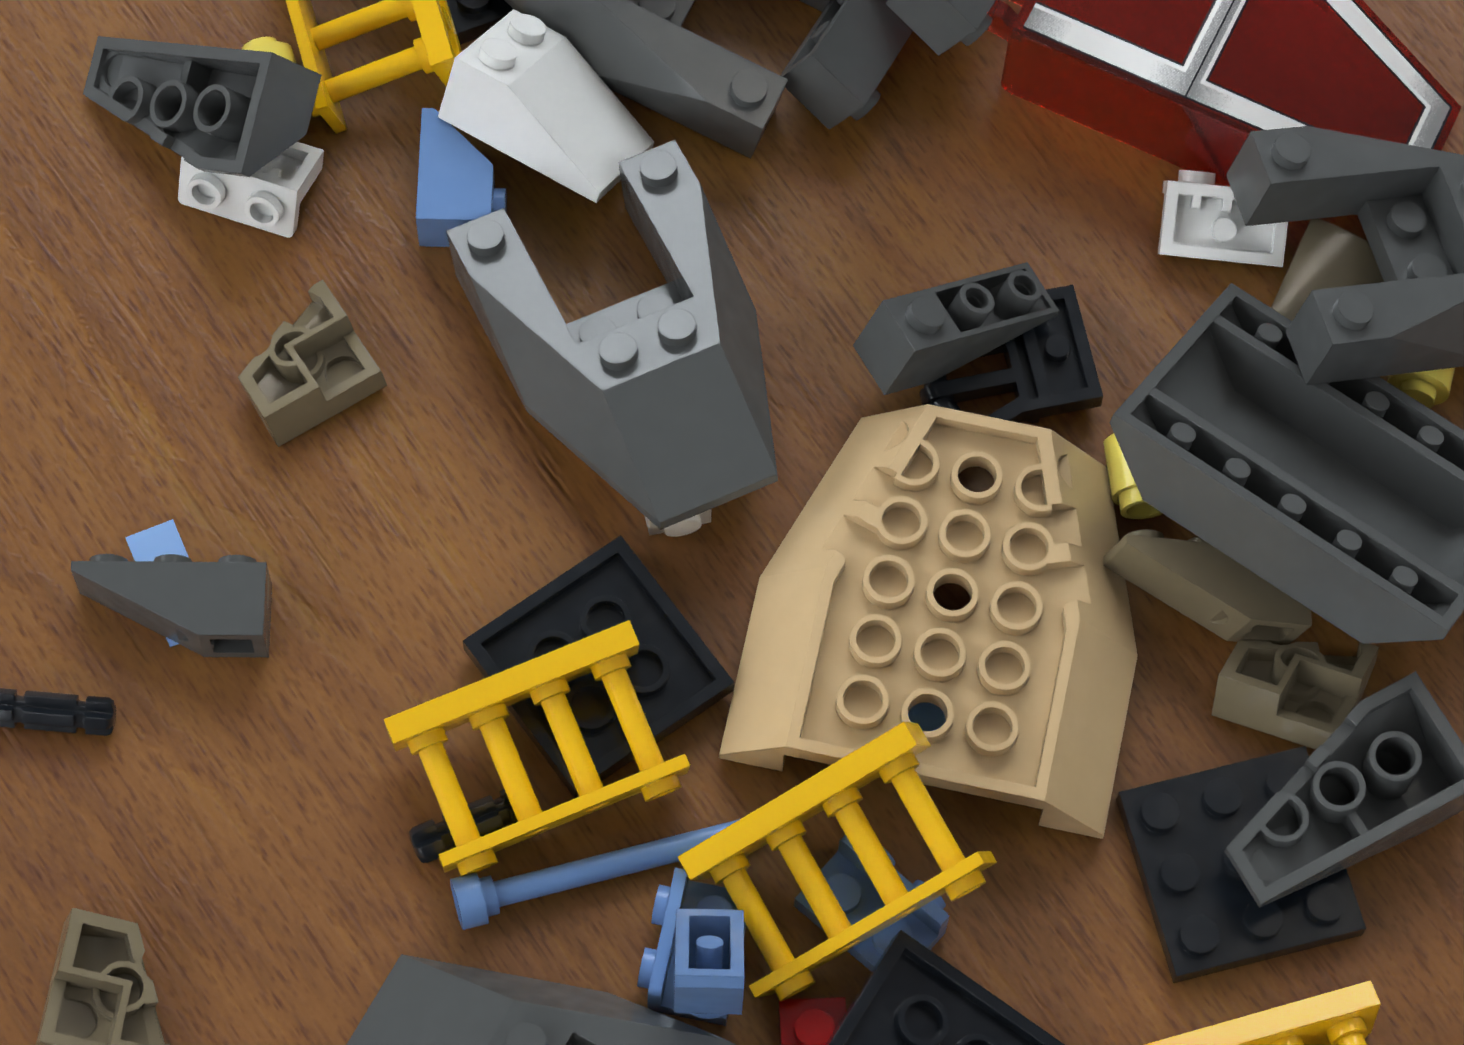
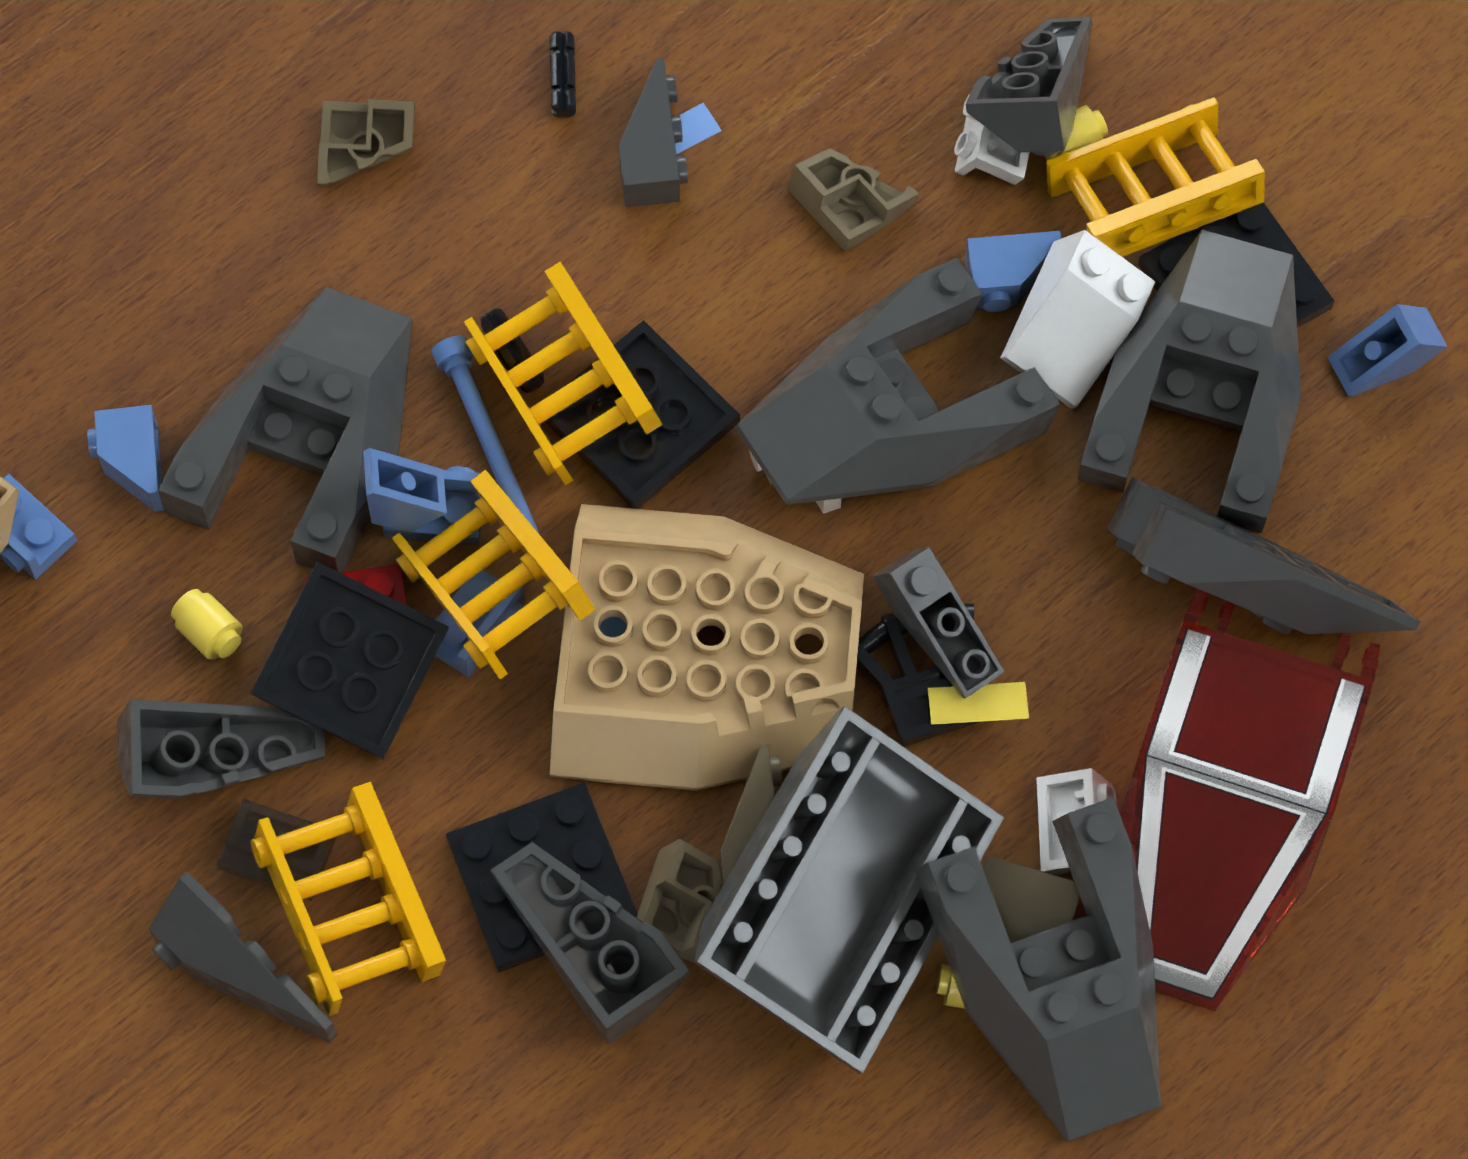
camera: 85 degrees right, 0 degrees up
(1065, 278) = (989, 703): none -> light yellow sticker

